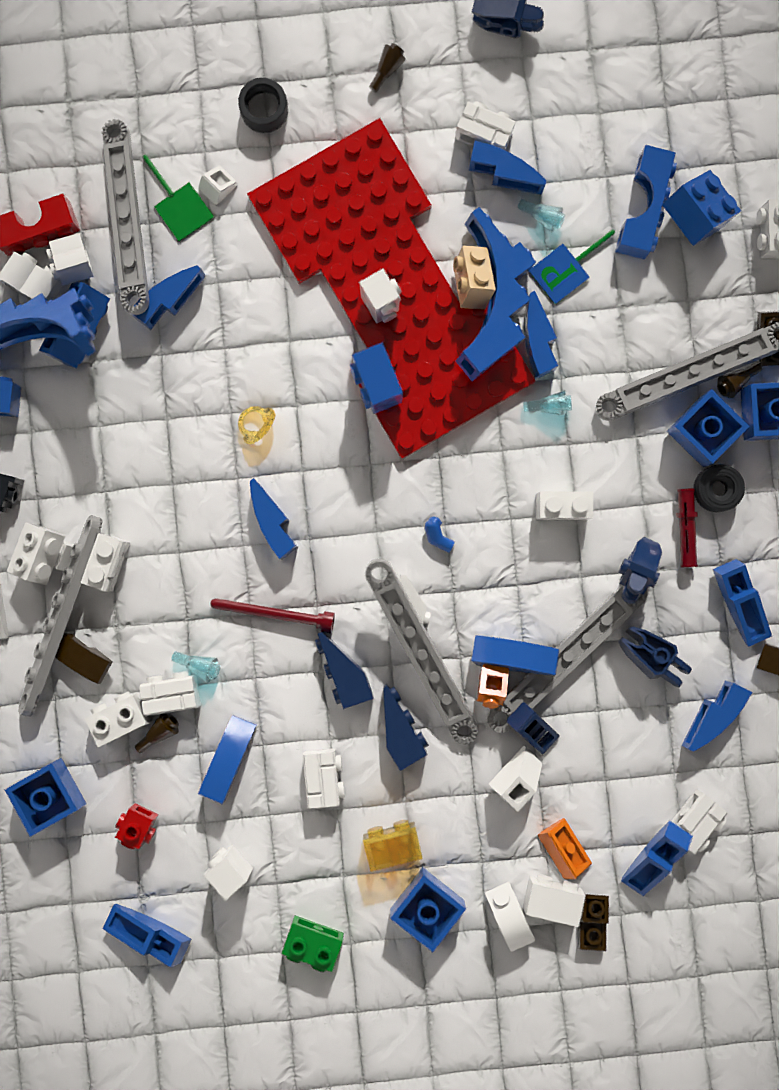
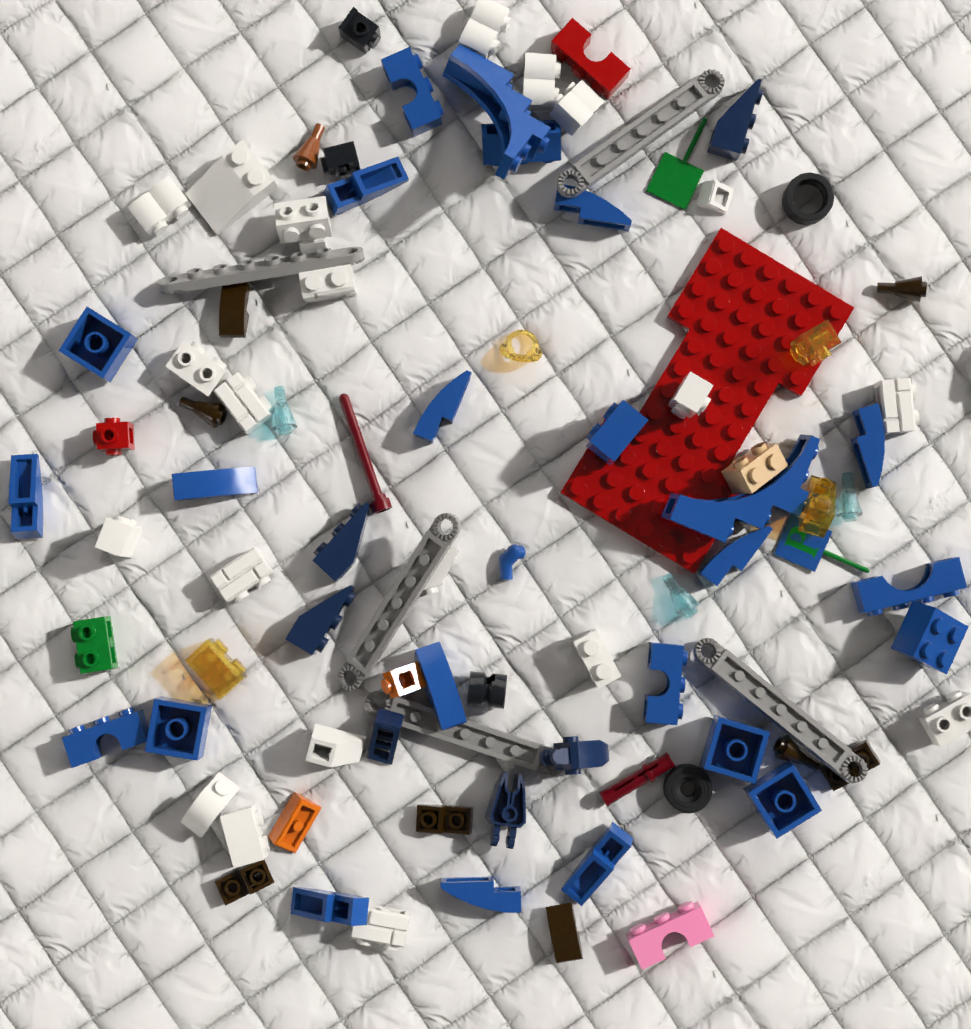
camera: 60 degrees right, 0 degrees up
(36, 482) = (365, 185): none -> blue slope
(167, 138) = (731, 129): none -> dark blue slope
(394, 163) = (815, 344): none -> clear yellow brick
(398, 1001) = (84, 744): none -> blue arch
(538, 240) = (819, 507): none -> clear yellow slope
(540, 616) = (487, 690): none -> black wheel
(632, 714) = (444, 819): none -> dark brown slope
(637, 468) = (665, 707): none -> blue arch

